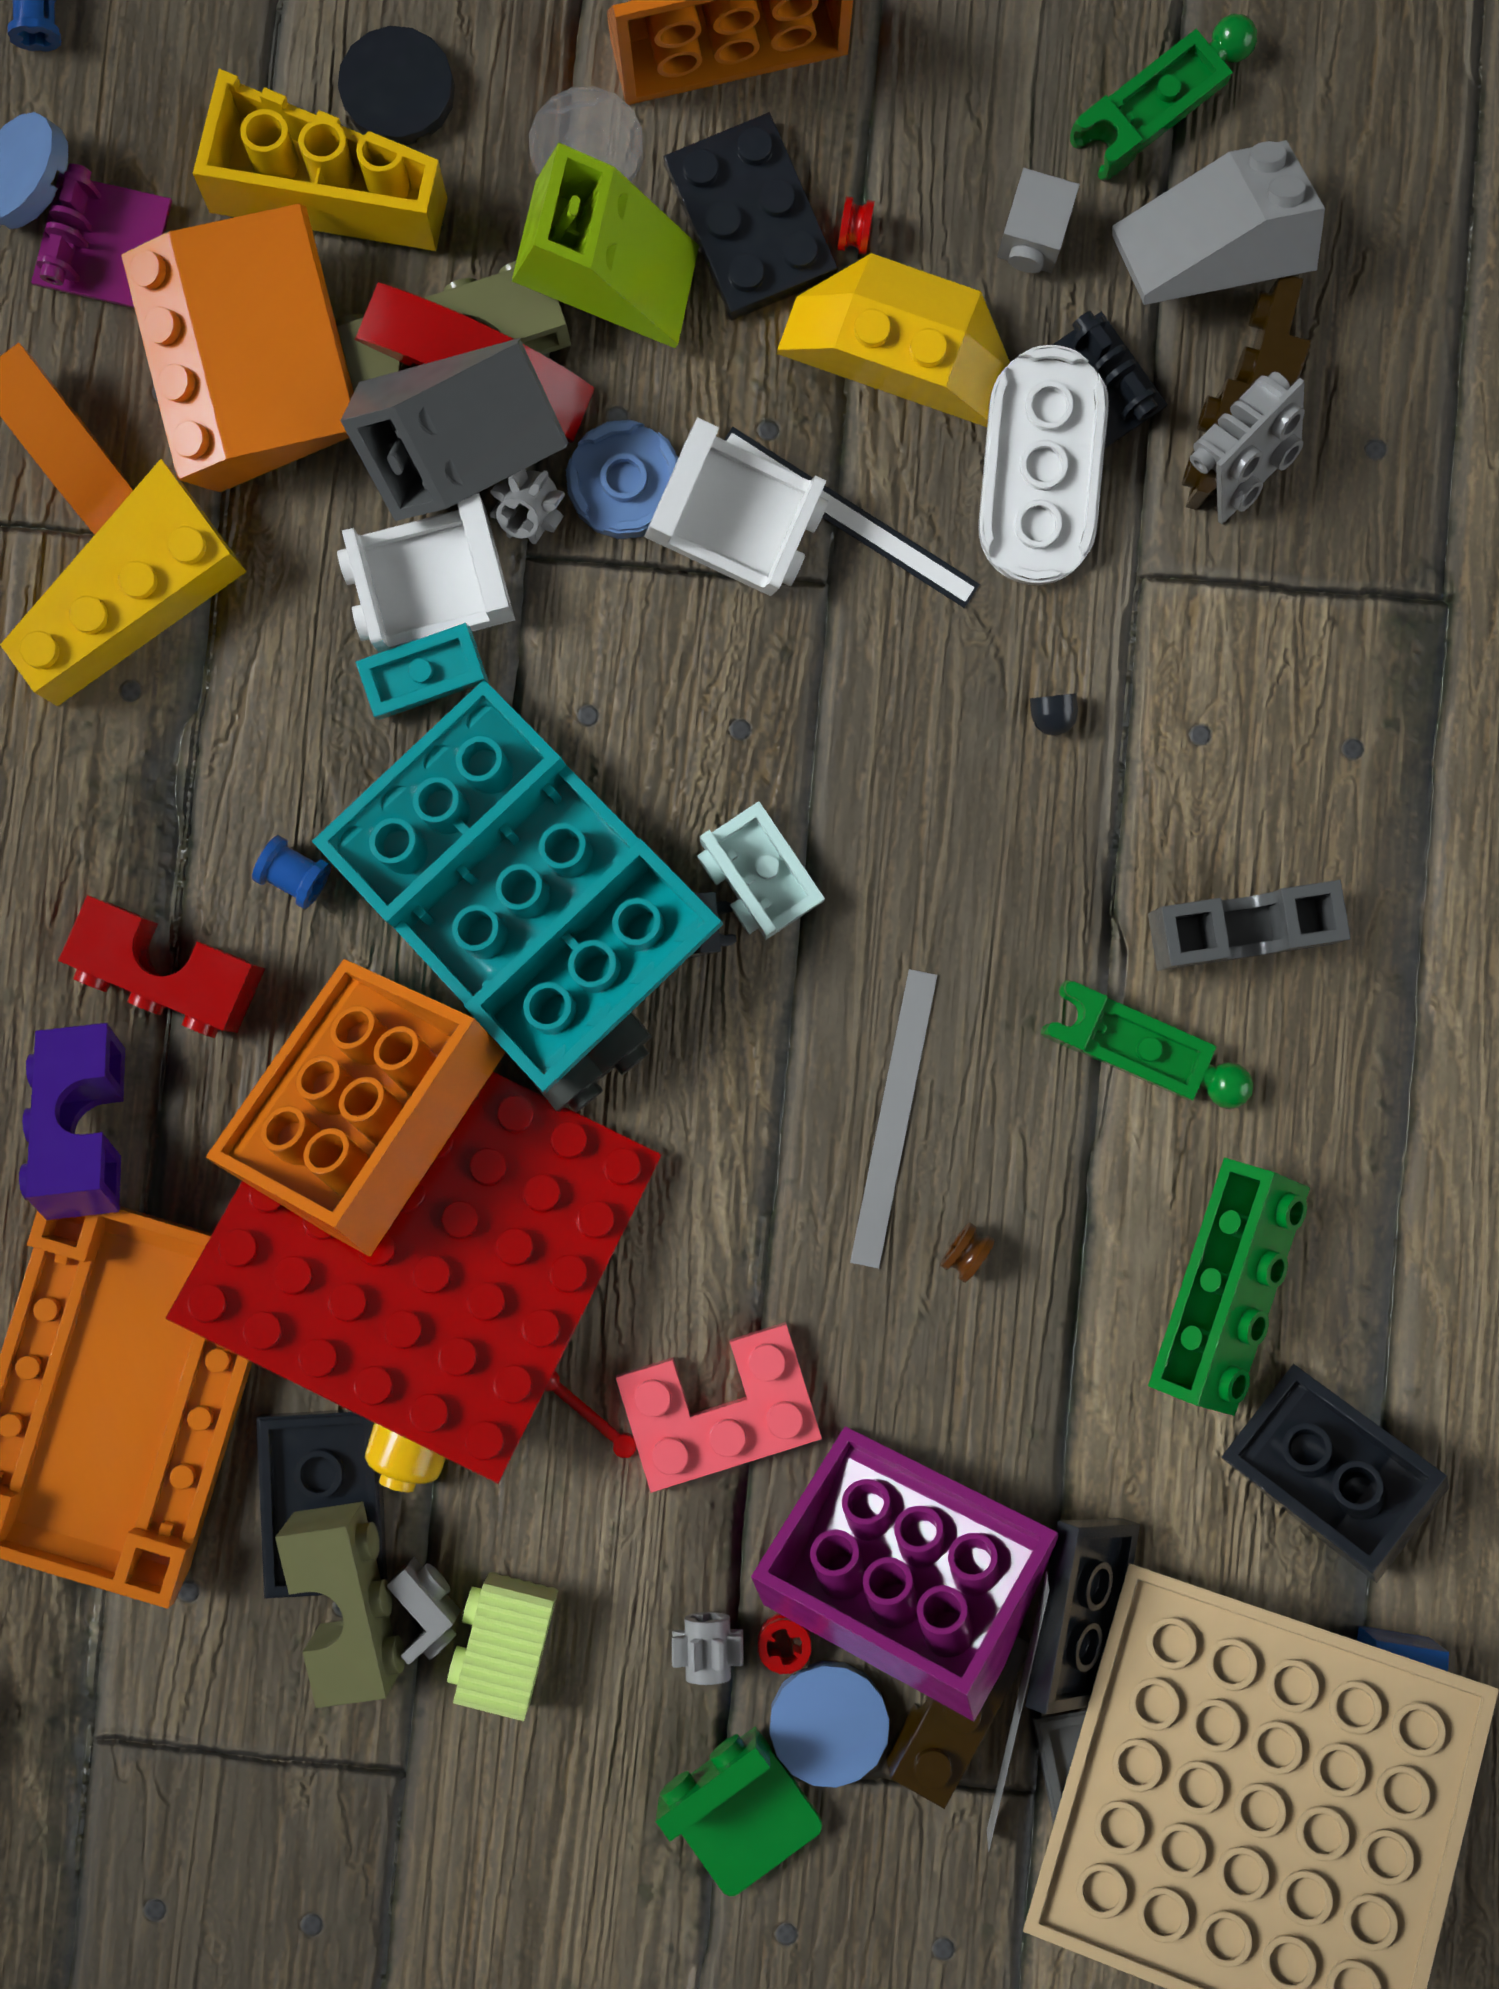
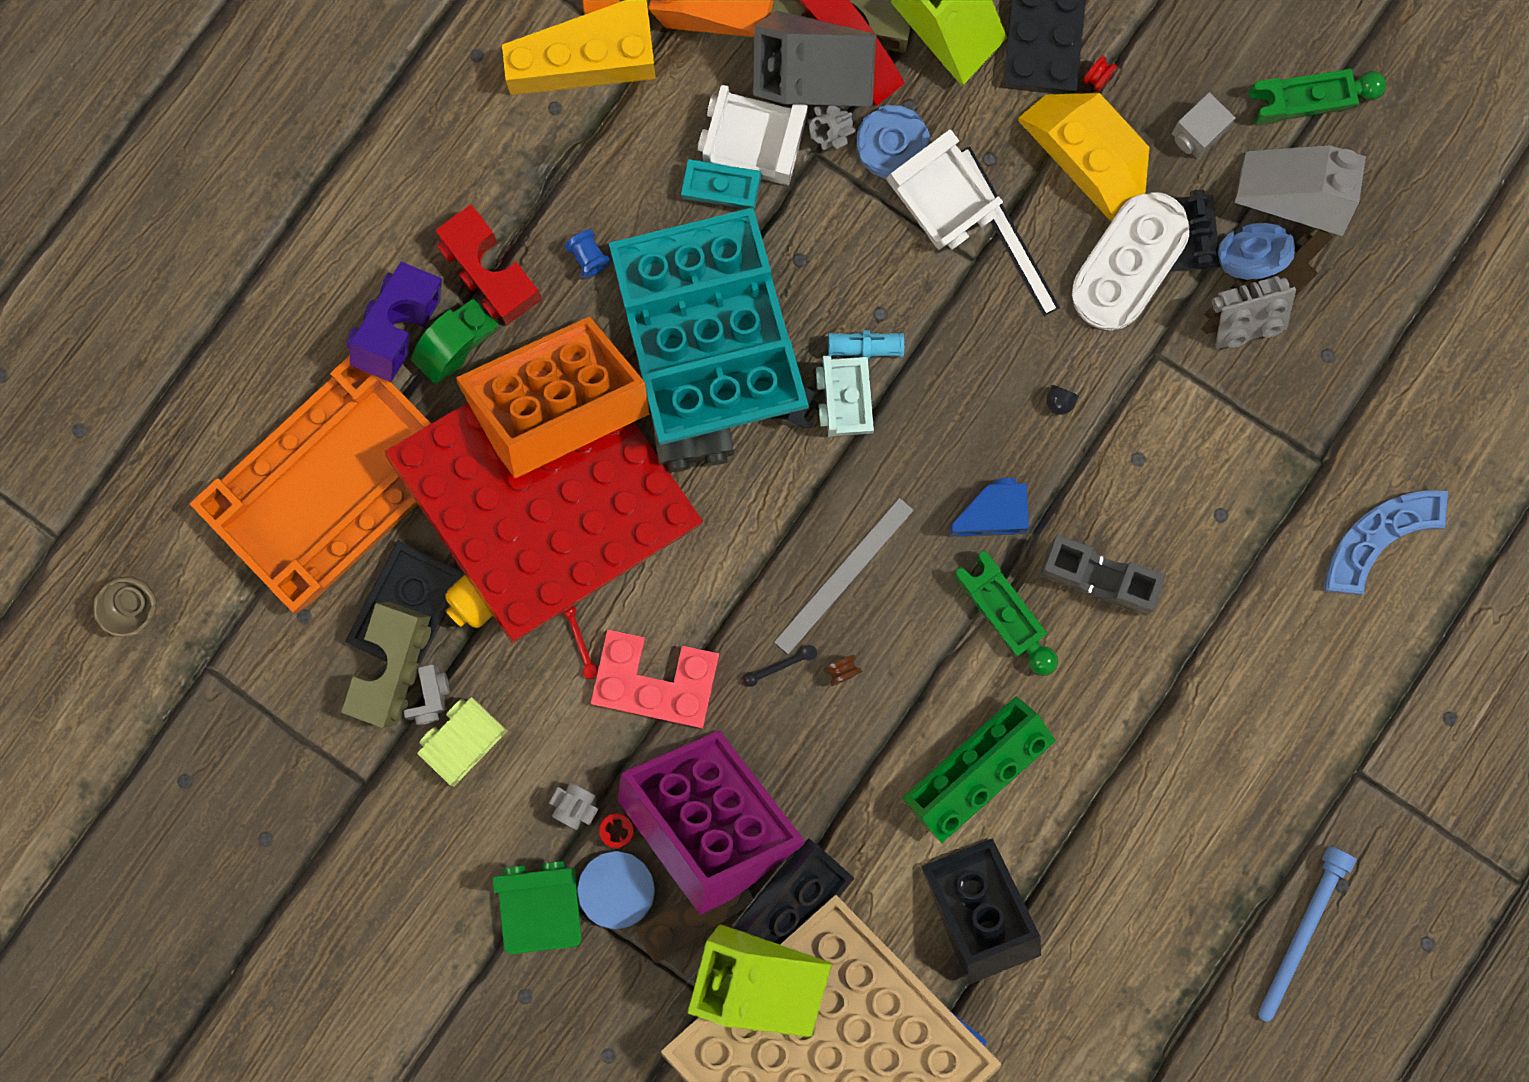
camera: 30 degrees right, 5 degrees down
(168, 1099) = (450, 339): none -> green brick
(746, 784) = (866, 344): none -> medium azure pin
(905, 1252) = (808, 653): none -> black hinge
(1051, 916) = (996, 511): none -> blue slope
(1108, 1773) = (758, 984): none -> lime slope
(1209, 357) = (1256, 251): none -> medium blue tile

